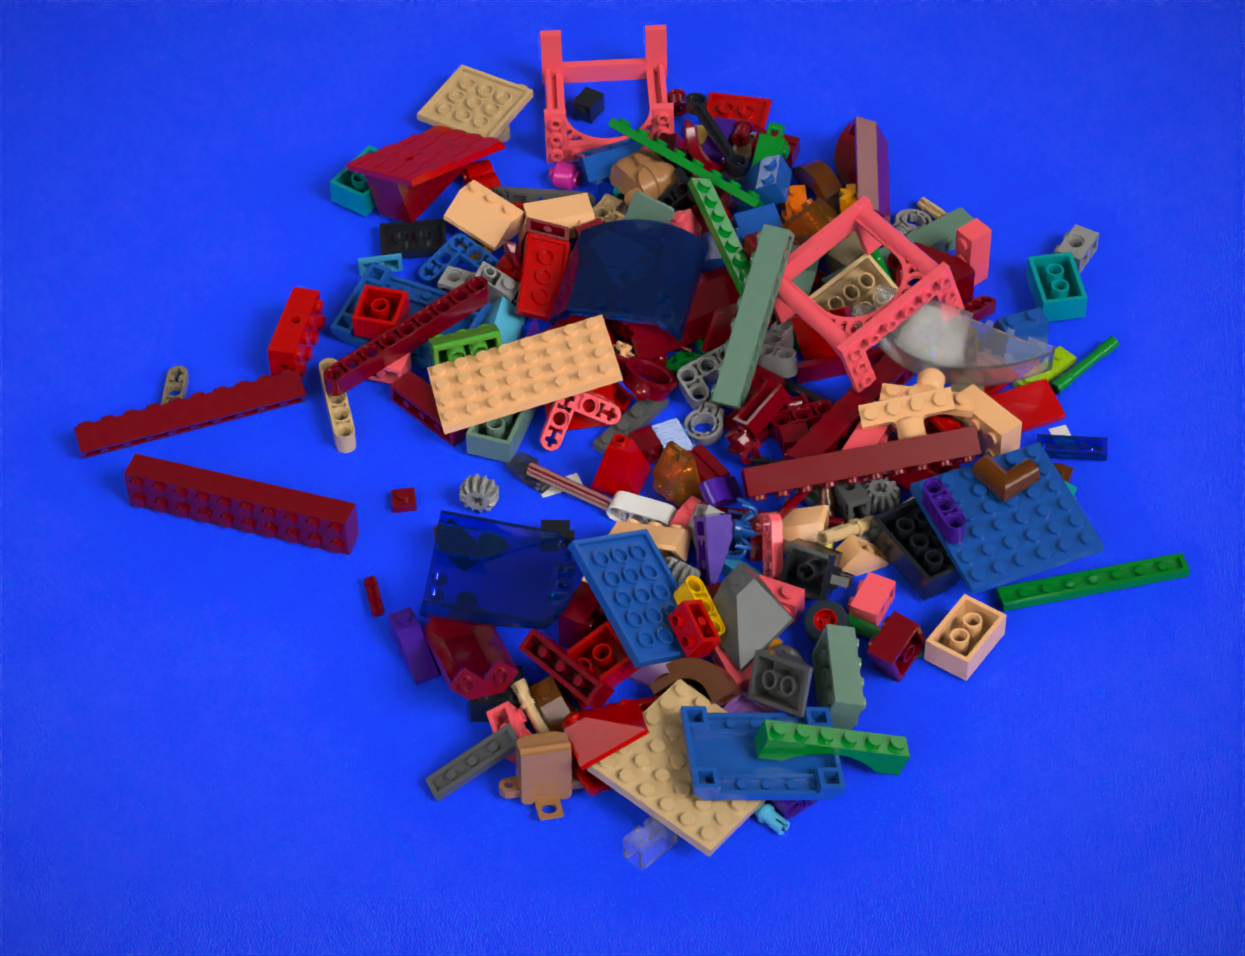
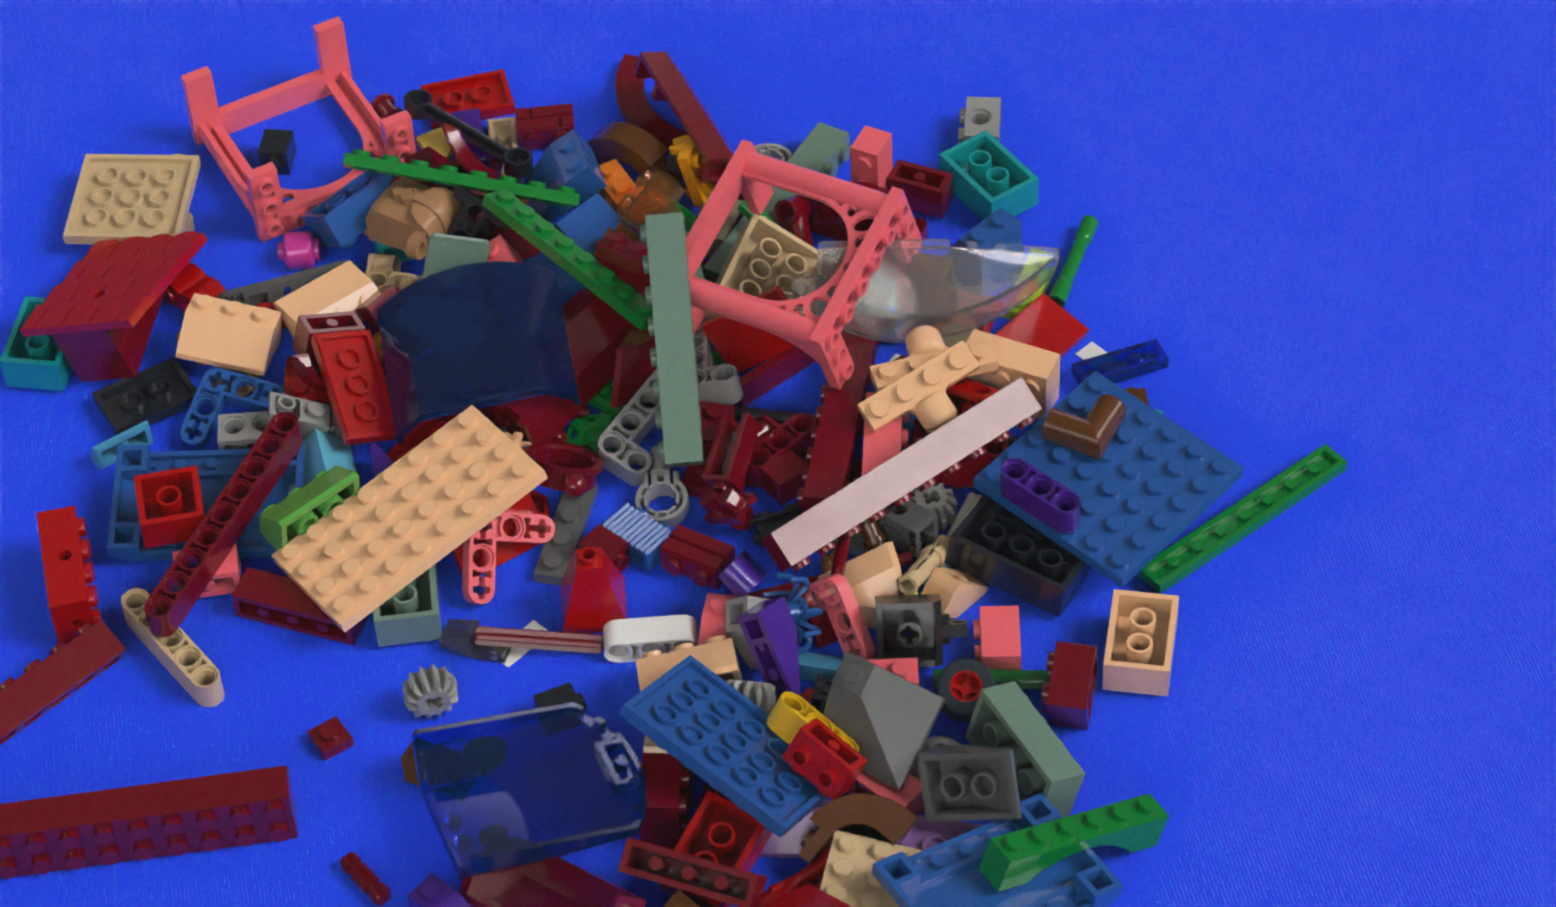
camera: 25 degrees left, 0 degrees up
(676, 475) = (673, 574): clear orange slope -> none
(743, 128) = (494, 116): dark red bush -> none
(770, 145) = (547, 125): green brick -> none
(930, 208) = (781, 137): tan axle -> none
(1004, 277) = (925, 188): none -> dark red brick

